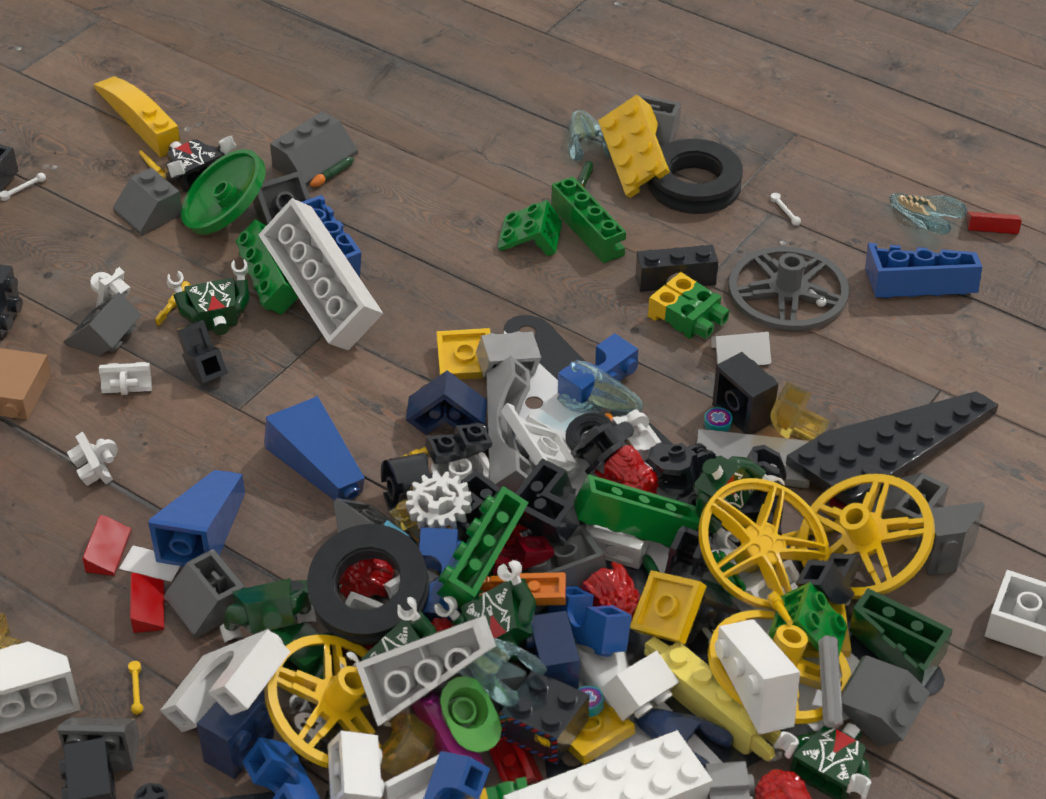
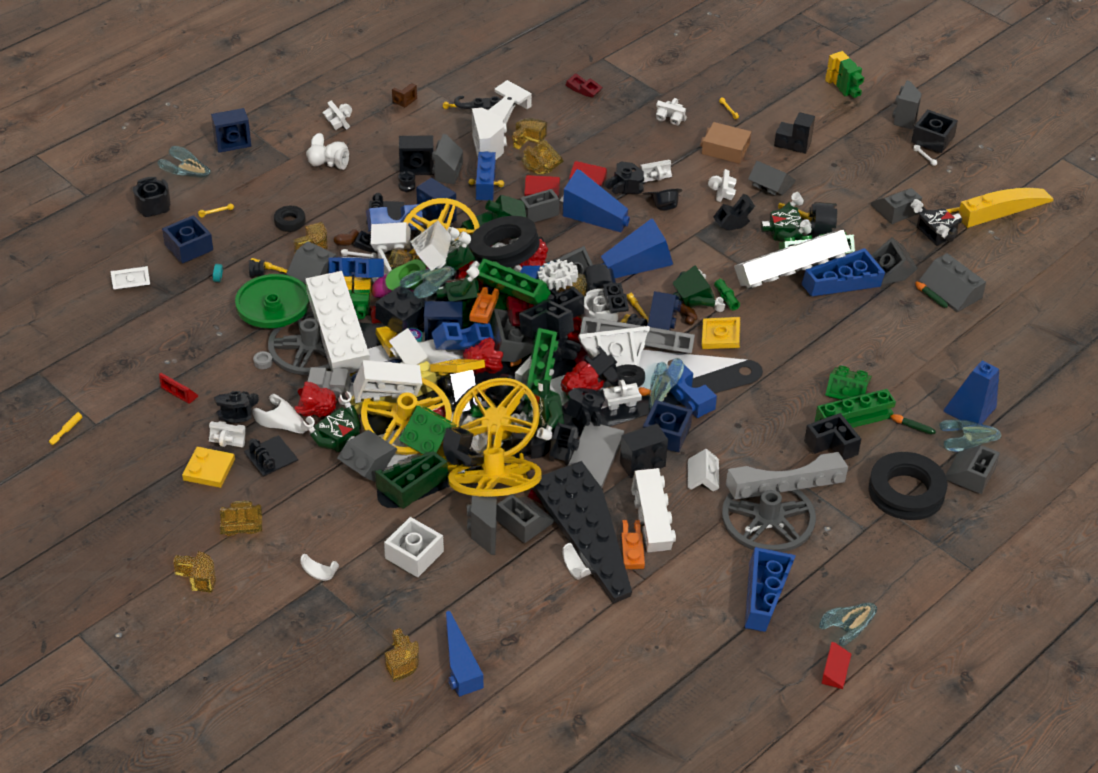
camera: 100 degrees right, 0 degrees up
(65, 613) = (541, 158): none -> clear yellow slope
(106, 678) = (485, 175): none -> blue arch
(109, 285) = (799, 178): white hips -> none
(127, 488) = (626, 180): none -> black hinge
(166, 439) = (665, 199): none -> black piece
(209, 257) = (822, 218): none -> black brick
(223, 191) = (891, 228): green dish -> none
(228, 676) = (456, 190): white arch -> none
(379, 356) = (727, 294): none -> green pin
(384, 383) = (695, 290): none -> dark green torso
(498, 347) = (708, 344): light grey brick -> none
(544, 112) = (977, 395): none -> blue slope
(633, 144) = (956, 443): yellow piece -> none
(645, 226) = (835, 434): none -> black brick
(656, 266) = (792, 445): black arch -> none
(682, 380) = (672, 420): none -> dark blue brick
(688, 307) = (749, 449): green hips -> none
(762, 292) = (752, 482): none -> light grey arch
(775, 197) = (882, 535): white hinge -> none
(778, 605) = (445, 414): yellow piece -> none
(792, 417) = (621, 476): clear yellow brick -> none
(830, 682) = (379, 424): light grey axle -> none
(846, 377) = (652, 510): none -> white wedge
(892, 401) = (632, 546): none -> orange hinge
(967, 445) = (574, 563): none -> white helmet

